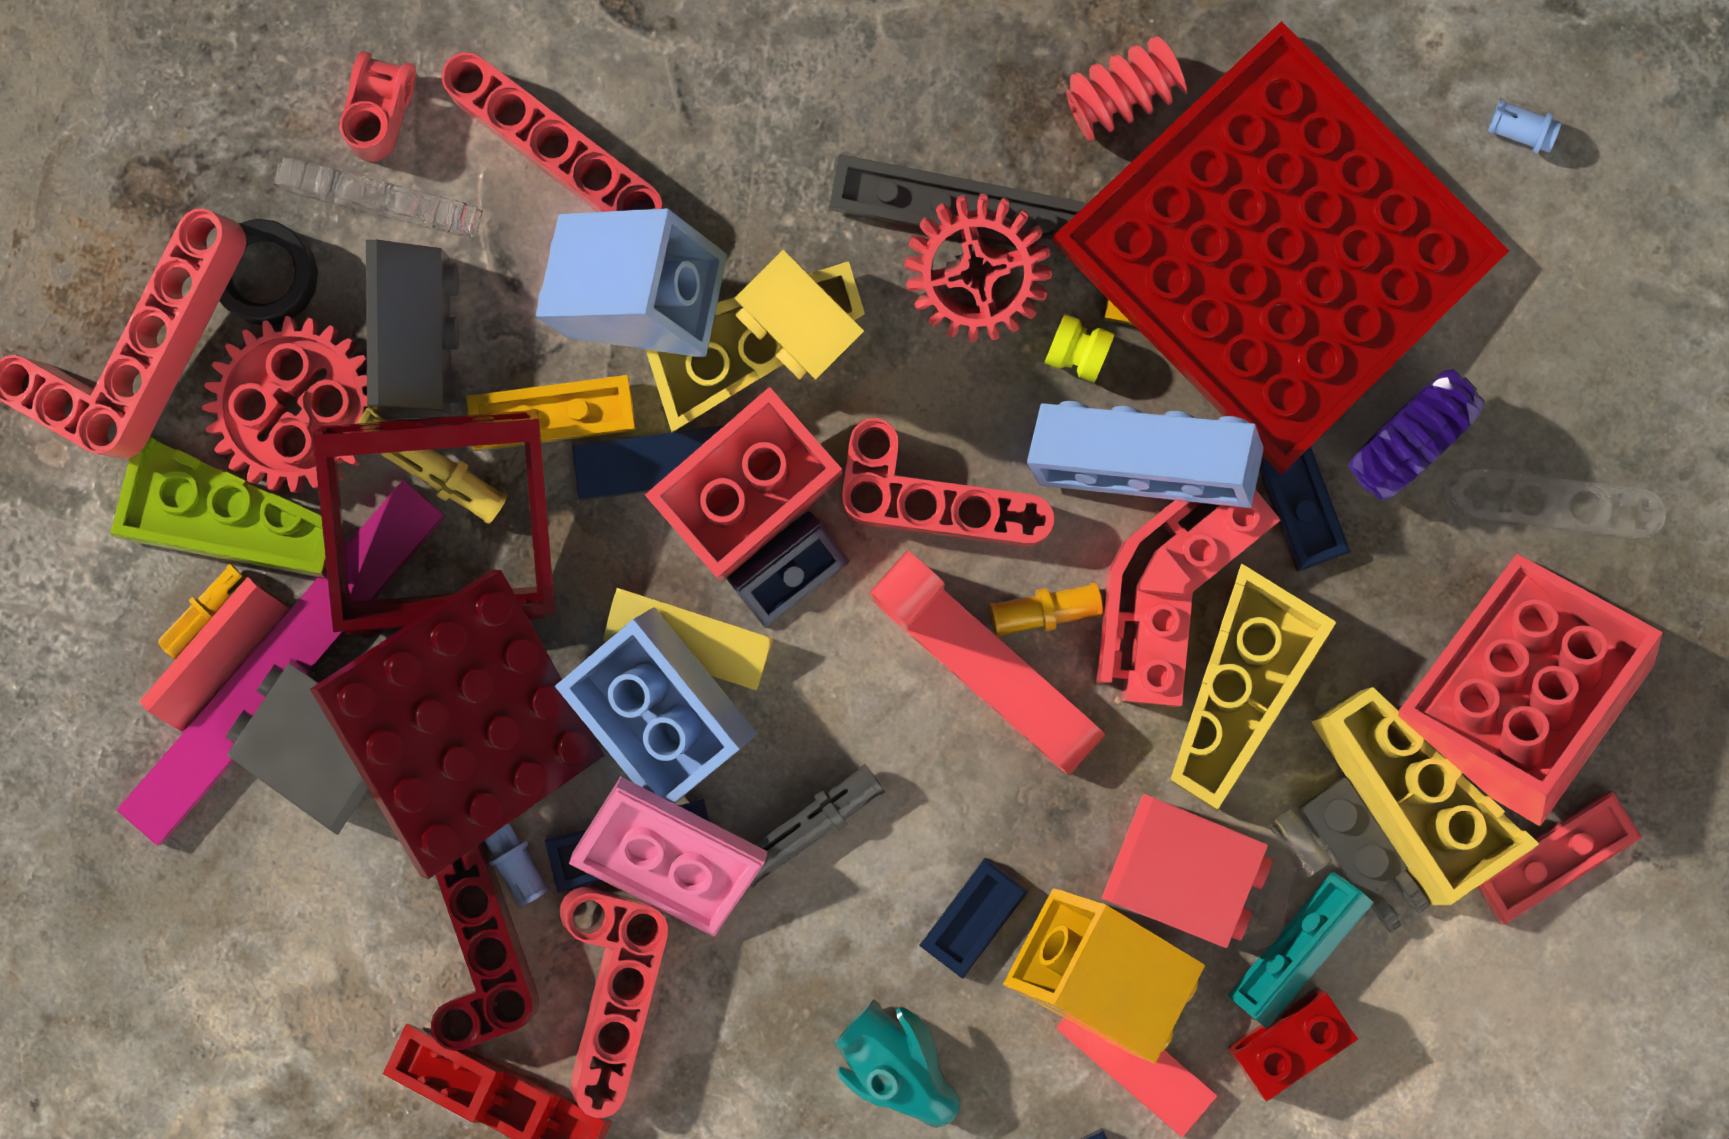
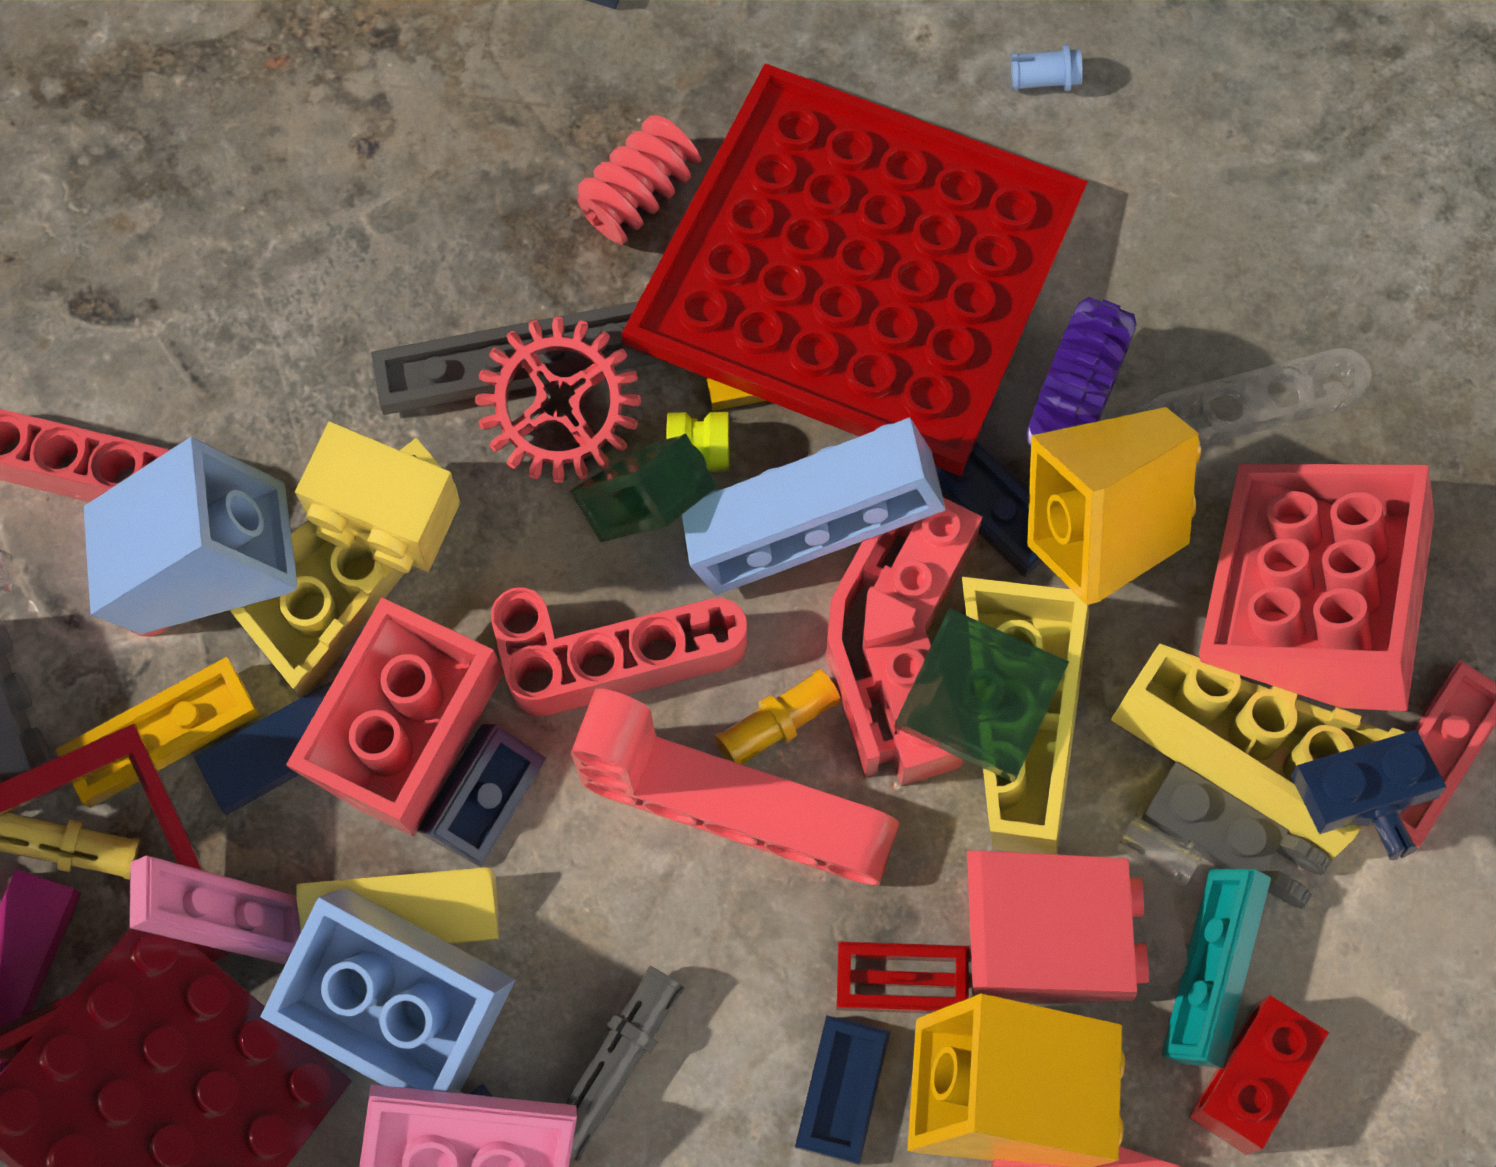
camera: 25 degrees left, 15 degrees down
(549, 590) = (212, 910): none -> bright pink tile
(1013, 833) = (895, 951): none -> red tile
(1018, 379) = (645, 489): none -> clear green slope
(1211, 672) = (981, 694): none -> clear green plate
(1391, 552) = (1112, 498): none -> yellow slope
(1481, 873) = (1371, 788): none -> dark blue plate

